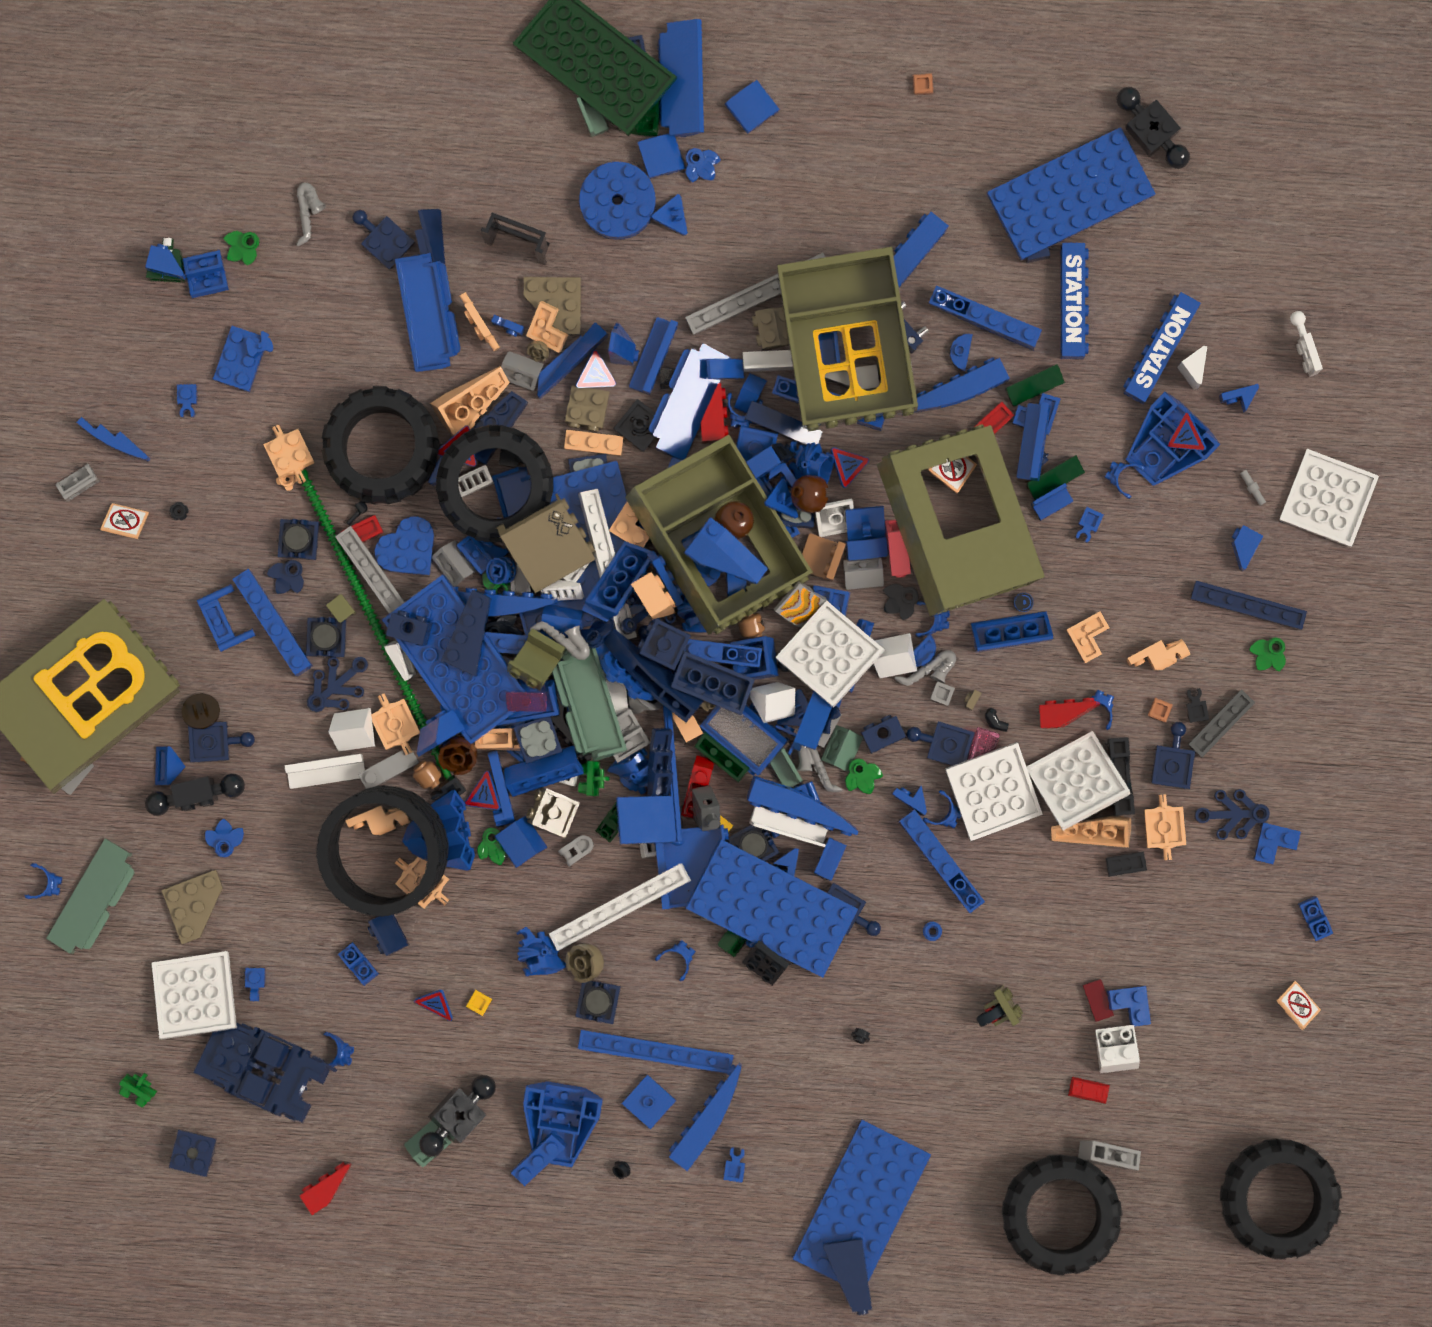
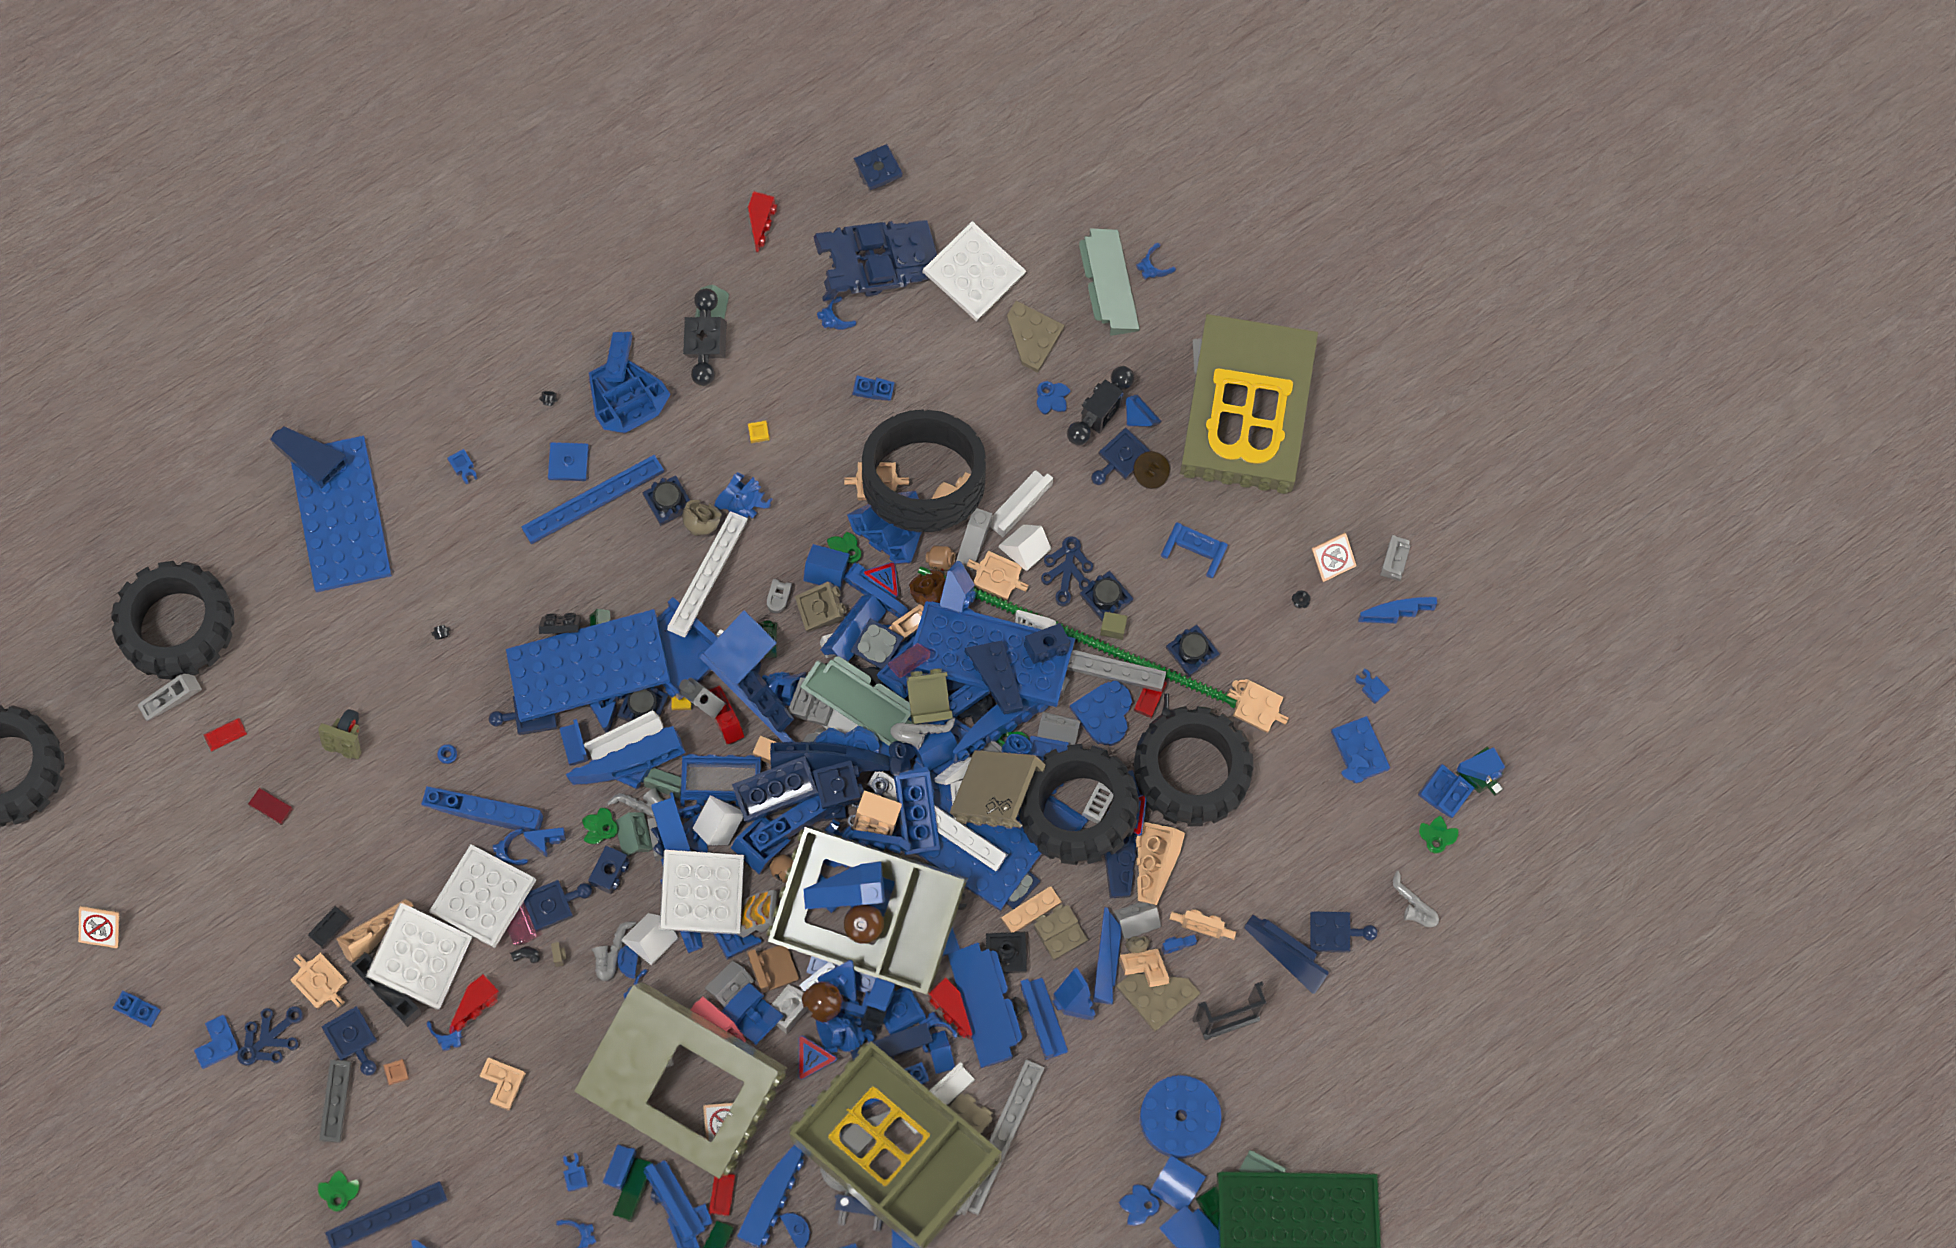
camera: 135 degrees right, 15 degrees down
(138, 1086) = (957, 181): green hips -> none
(254, 979) = (939, 318): blue plate -> none
(272, 622) = (1156, 574): blue brick -> none
(285, 579) = (1176, 616): dark blue plate -> none
(388, 934) = (865, 418): dark blue slope -> none
(427, 313) = (1250, 900): blue slope -> none
(436, 1003) = (789, 405): piece -> none
(448, 785) = (917, 562): black plate -> none
(595, 373) = (1079, 958): piece -> none
(595, 779) = (807, 653): green hips -> none
(625, 527) = (944, 859): light nougat plate -> none
(672, 215) = (1126, 1142): blue piece -> none
(684, 951) = (632, 586): blue helmet -> none
(705, 1123) = (510, 476): blue slope -> none
(722, 757) = (733, 748): dark green slope -> none
(725, 369) = (976, 1051): blue slope -> none
(829, 348) = (902, 1136): blue panel -> none
(898, 603) = (681, 984): black plate -> none
(942, 693) = (586, 940): light grey plate -> none
(1011, 632) = (568, 1033): blue slope -> none
(1023, 602) = (577, 1066): black tile -> none
(1117, 1049) = (225, 779): white slope -> none
(1135, 1000) = (241, 828): blue plate -> none
(1159, 655) = (430, 1113): light nougat plate -> none
(1197, 709) = (364, 1096): black plate -> none

